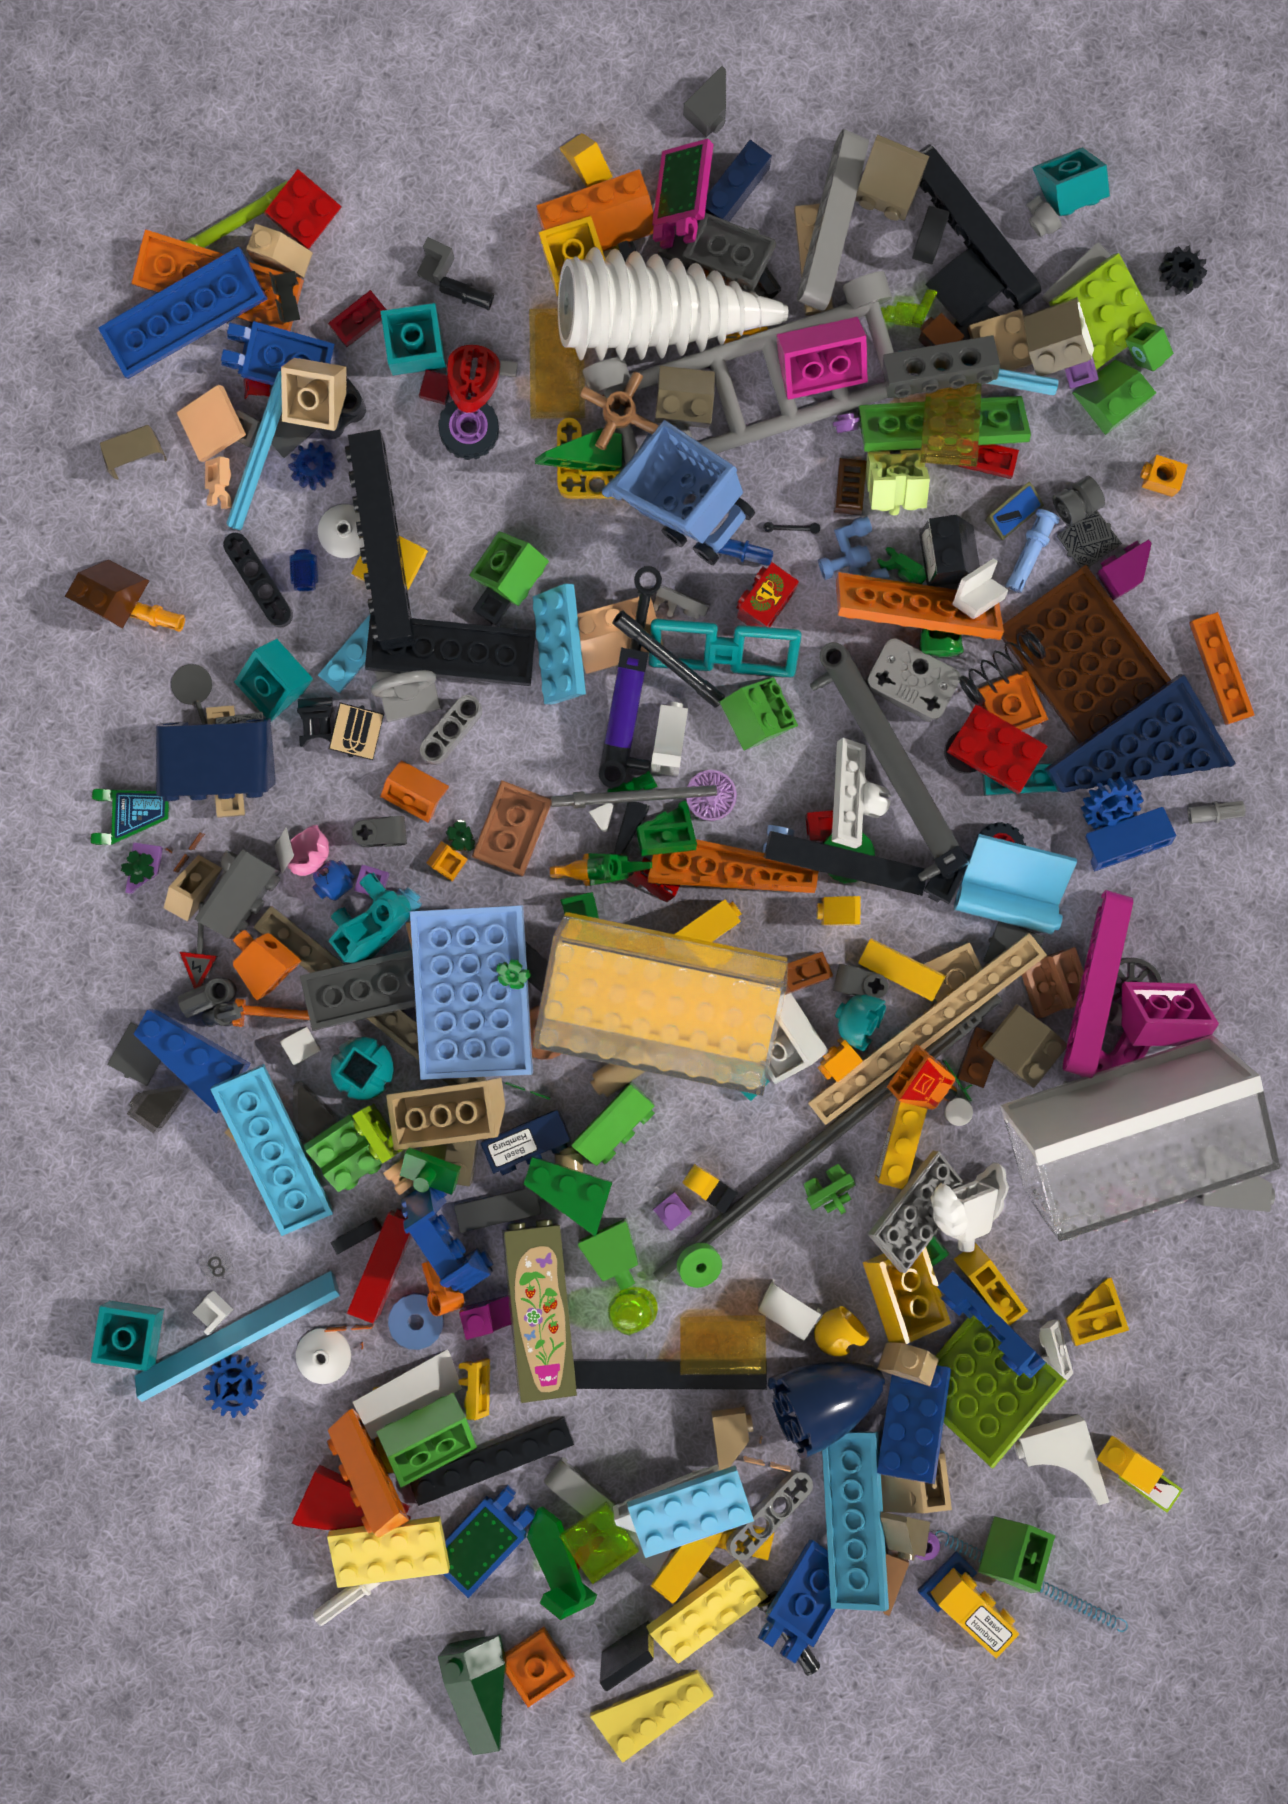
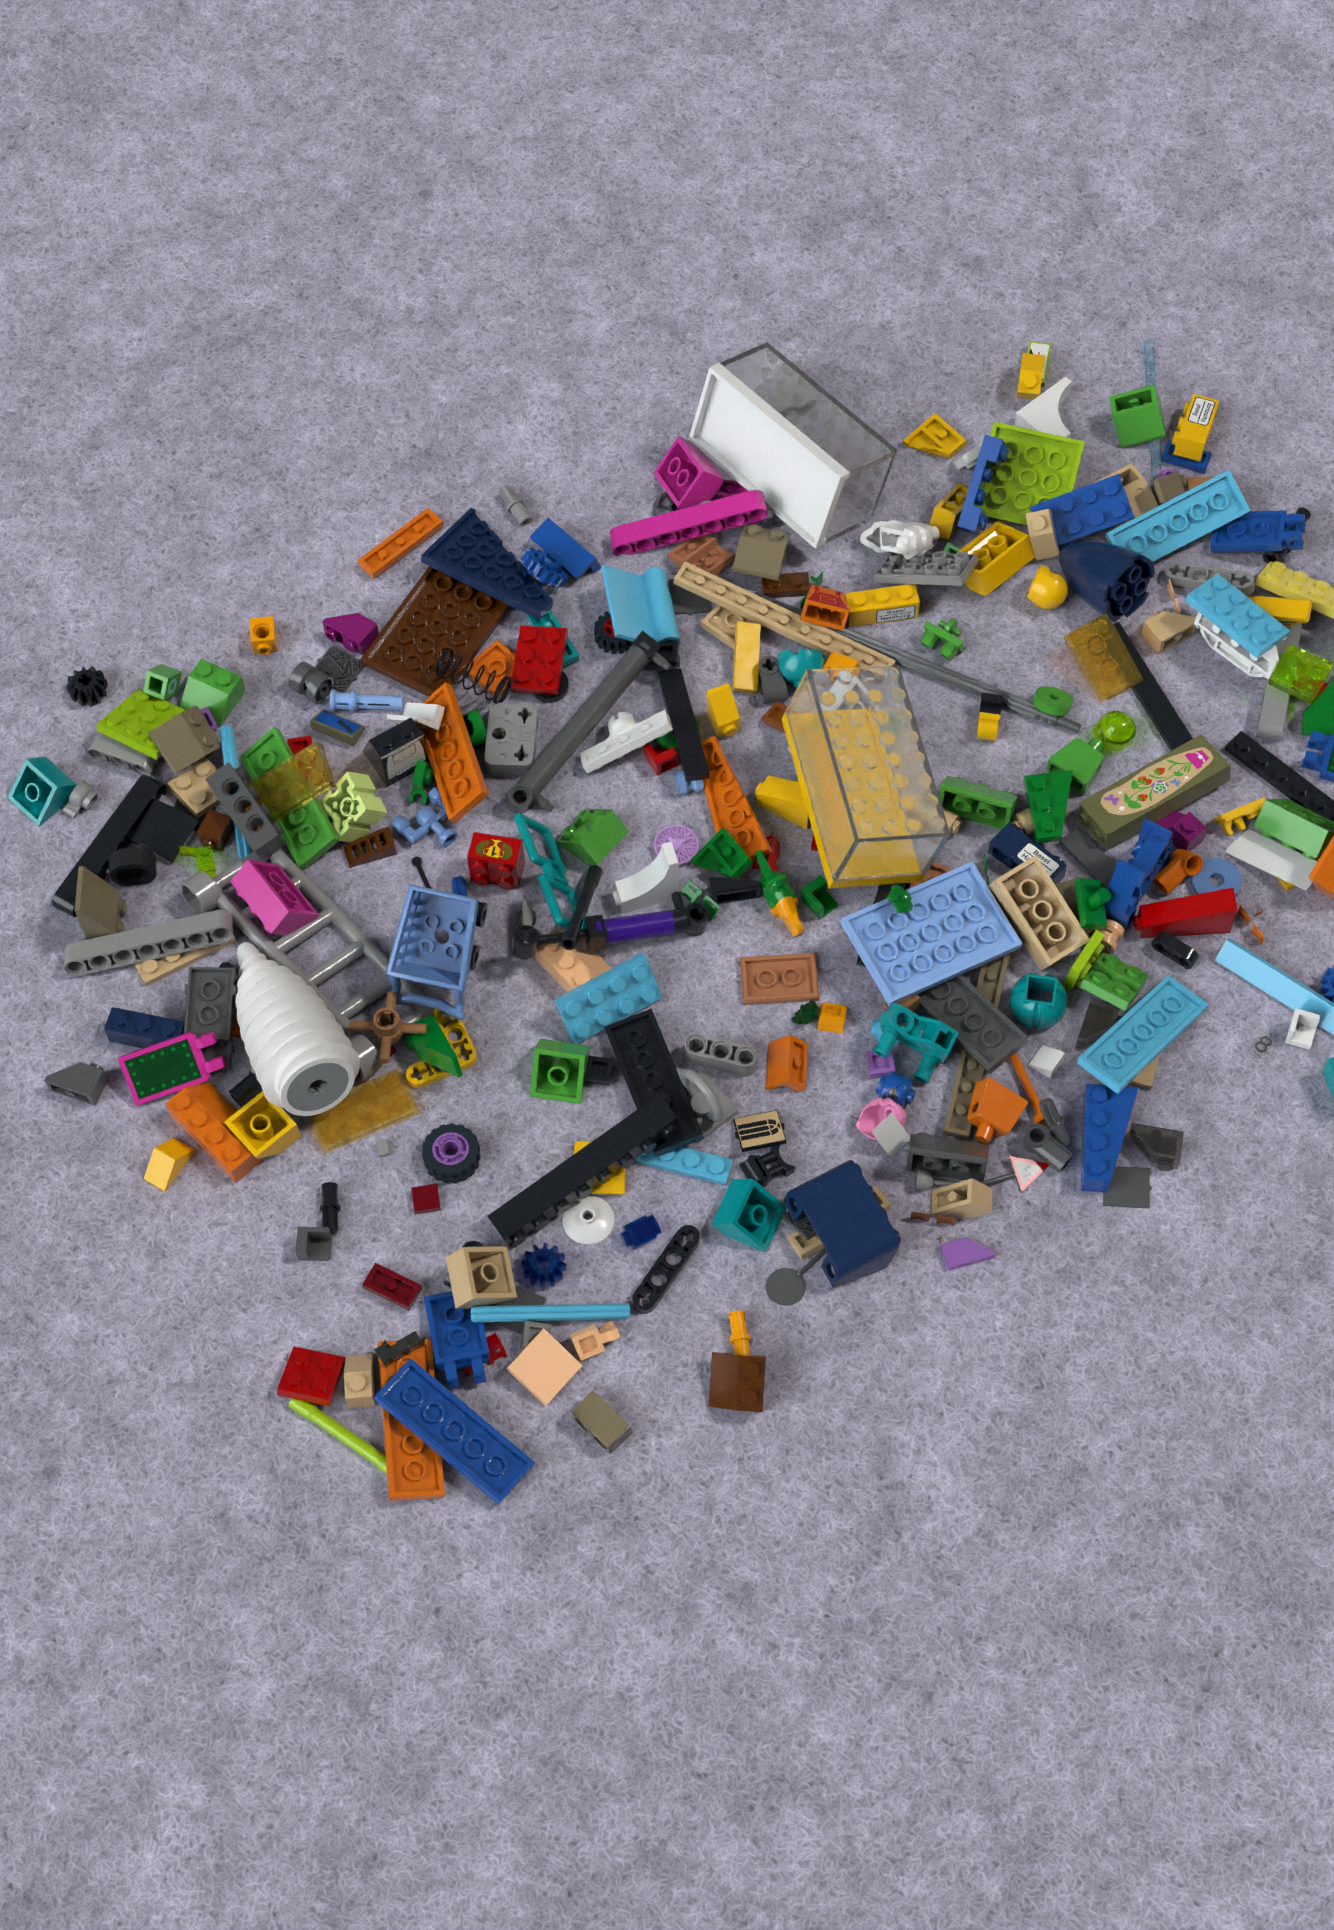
camera: 115 degrees left, 25 degrees down
(130, 813) = (924, 1283): flag -> none
(138, 867) = (967, 1252): dark green plant -> none
(332, 1346) = (1285, 947): white dish -> none
(386, 831) = (836, 1073): dark grey piece -> none
(413, 339) = (393, 1226): teal brick -> none
(459, 376) = (398, 1154): red piece -> none
(580, 799) = (730, 920): flat silver bar -> none
(602, 816) = (734, 912): white slope -> none
(672, 1211) = (1022, 739): medium lavender plate -> none
(685, 397) = (353, 984): dark tan slope -> none
(788, 1311) = (1051, 628): white piece -> none
(846, 423) = (318, 870): medium lavender plate -> none
(958, 1111) = (835, 580): white tile -> none

